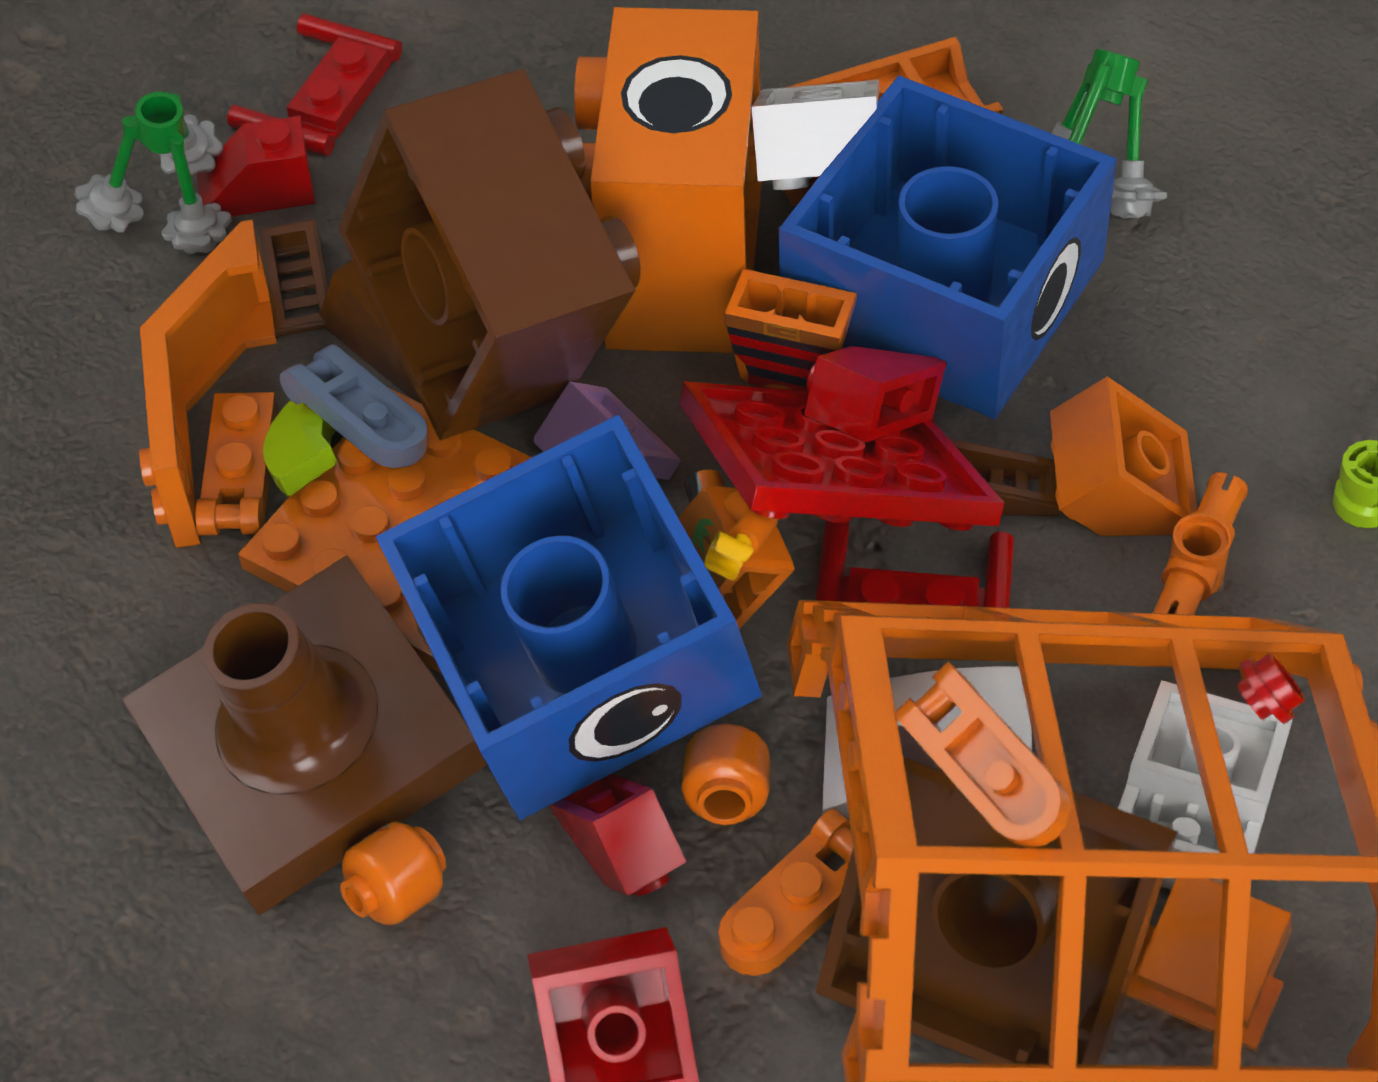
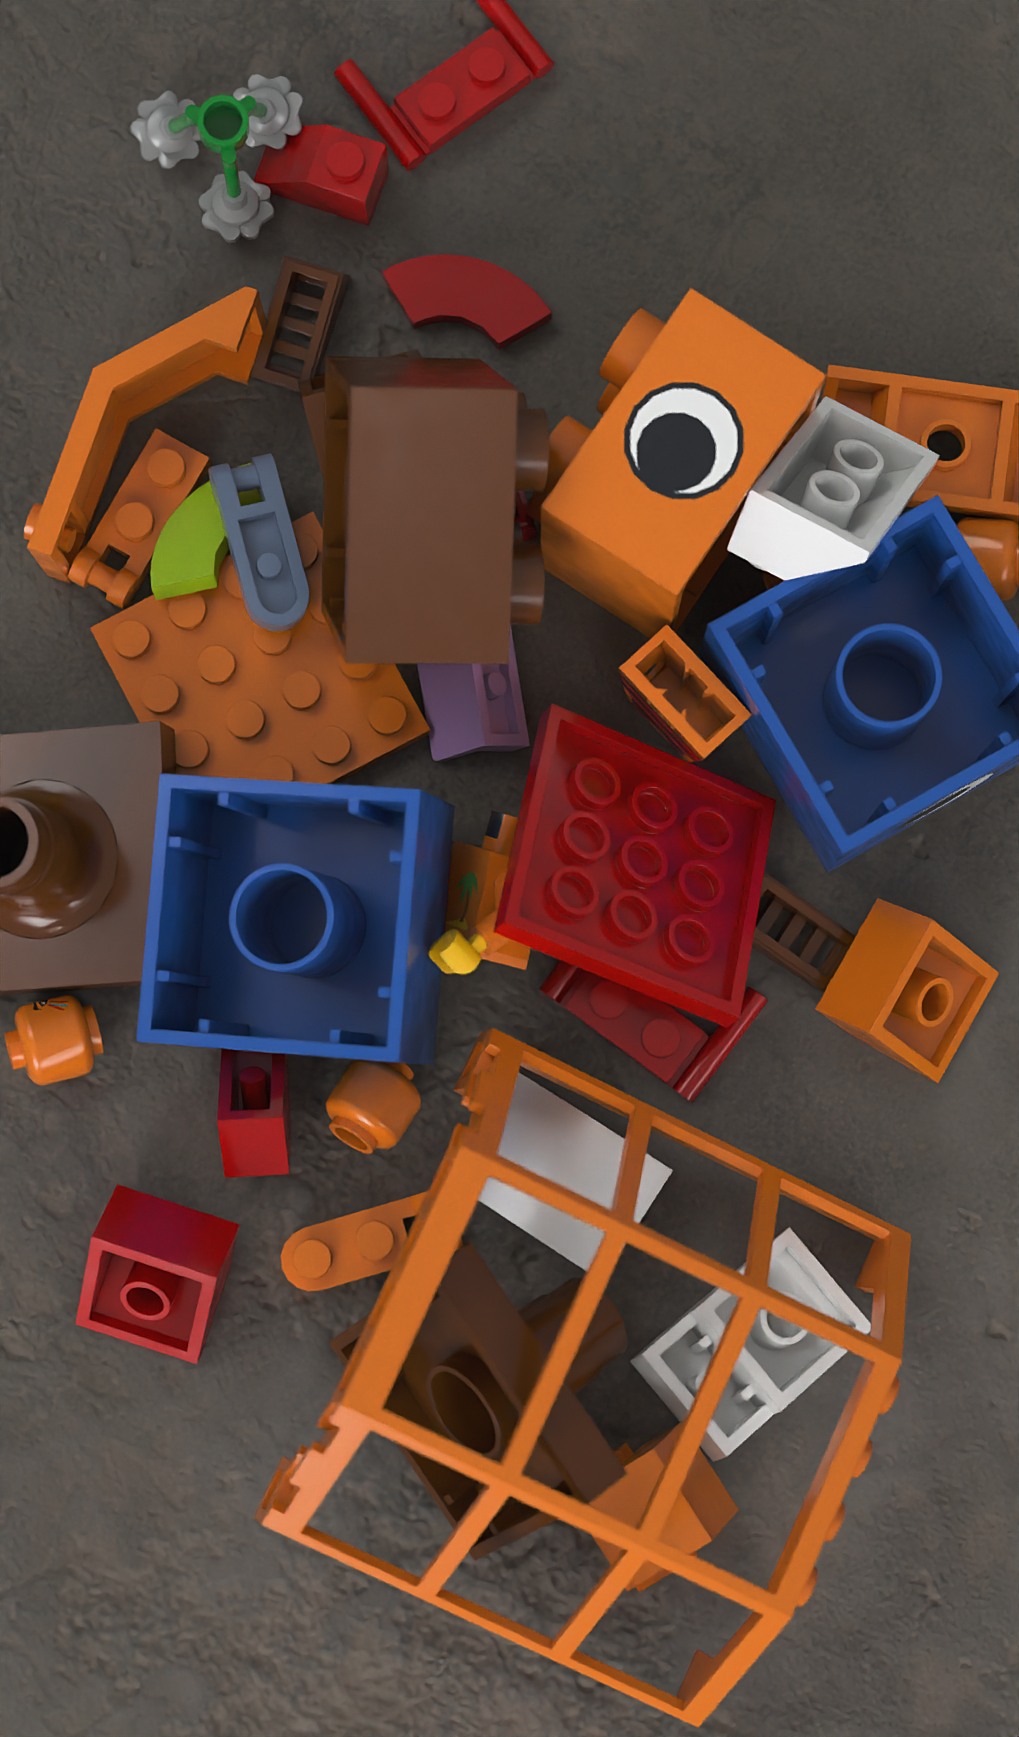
camera: 30 degrees right, 30 degrees up
(873, 391) = (712, 812): red slope -> none
(987, 761) = (486, 1357): orange plate -> none
(1201, 548) = (934, 1099): orange pin -> none
(1270, 688) = (780, 1405): red plate -> none

